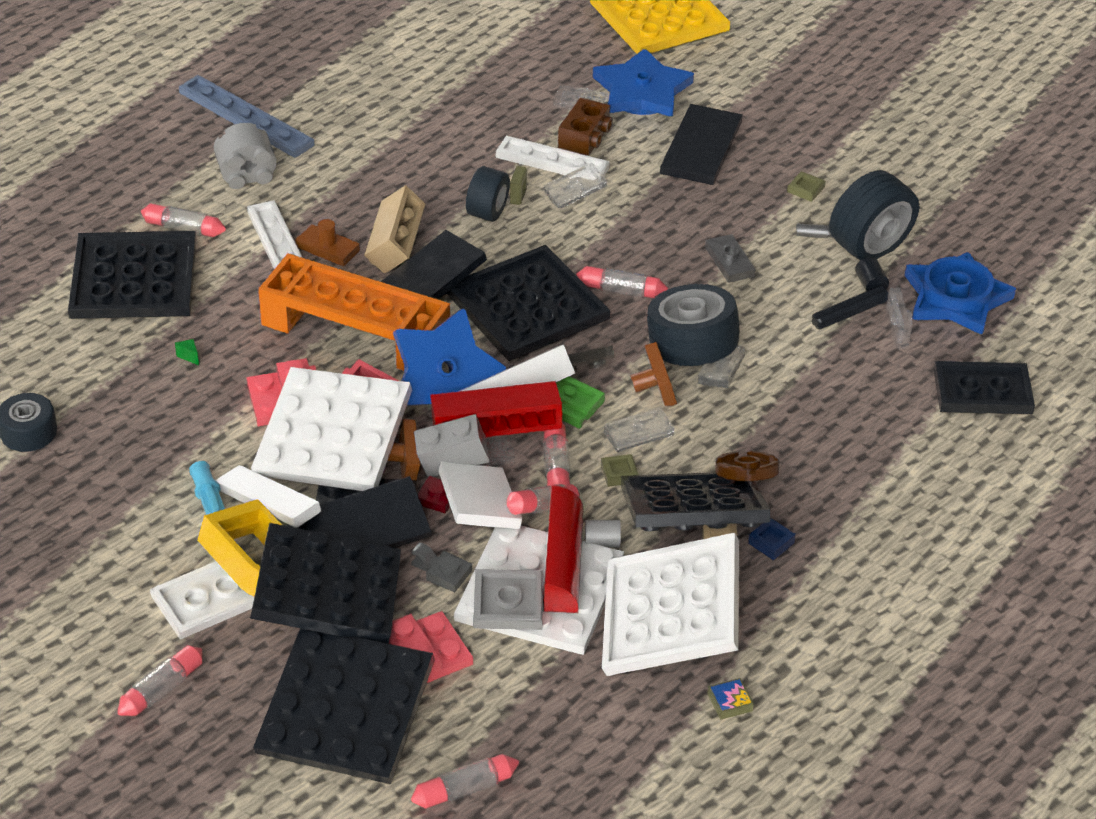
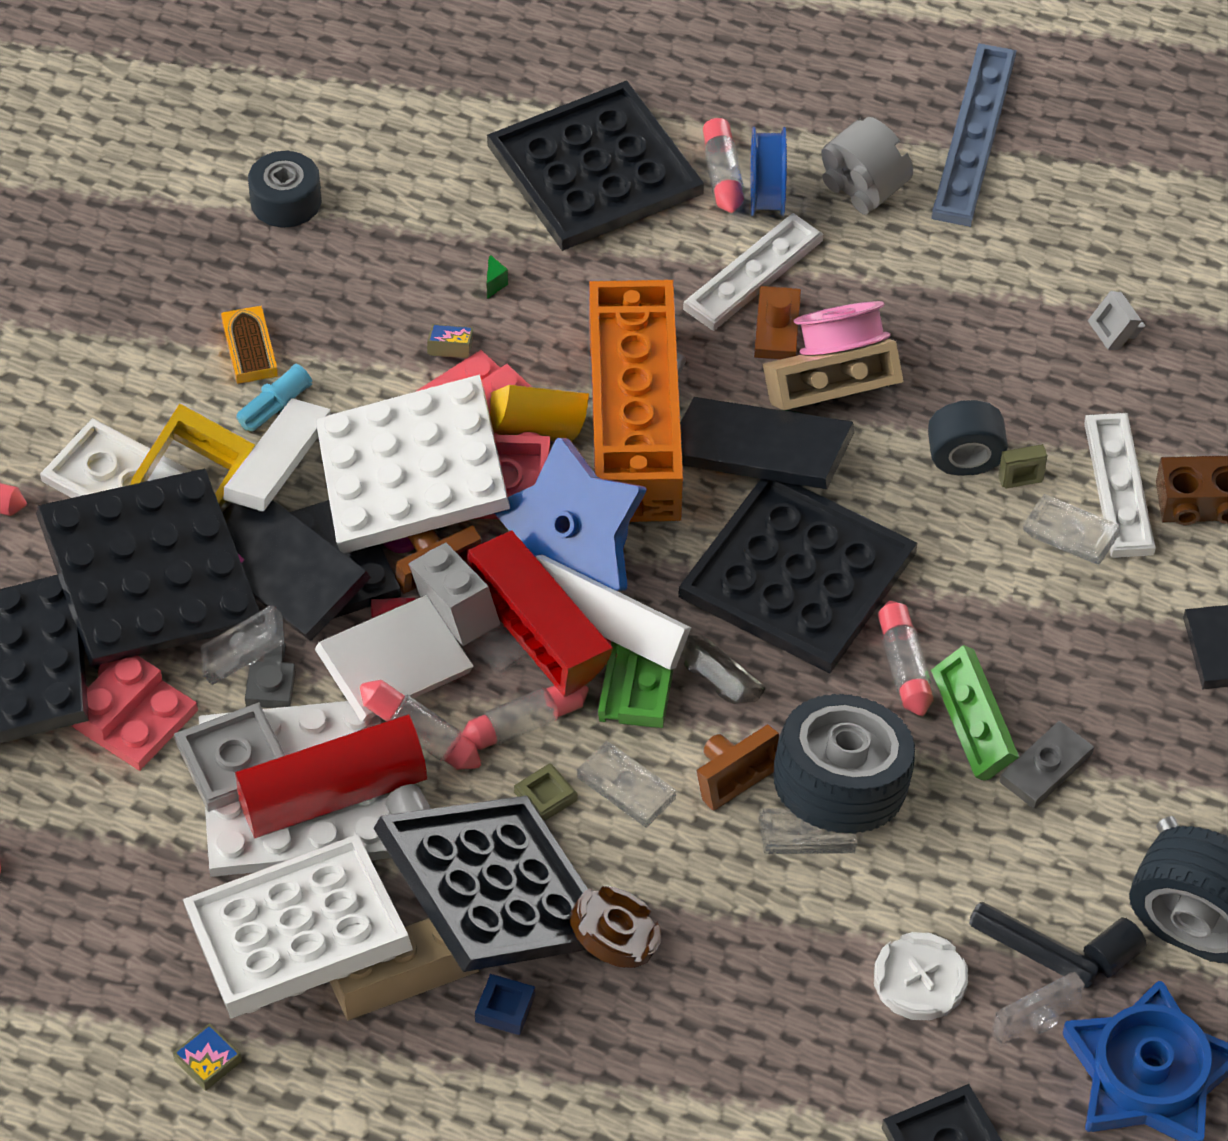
camera: 65 degrees right, 10 degrees up
(146, 489) = (249, 344): none -> tile
(219, 192) = (768, 171): none -> blue wheel
(227, 388) = (450, 341): none -> olive tile
(336, 353) = (539, 411): none -> yellow brick
(368, 209) = (842, 328): none -> bright pink wheel
(417, 565) = (242, 645): none -> clear plate
(438, 112) = (1115, 321): none -> light grey tile
(682, 267) = (974, 713): none -> bright green plate
(845, 359) = (920, 976): none -> white tile

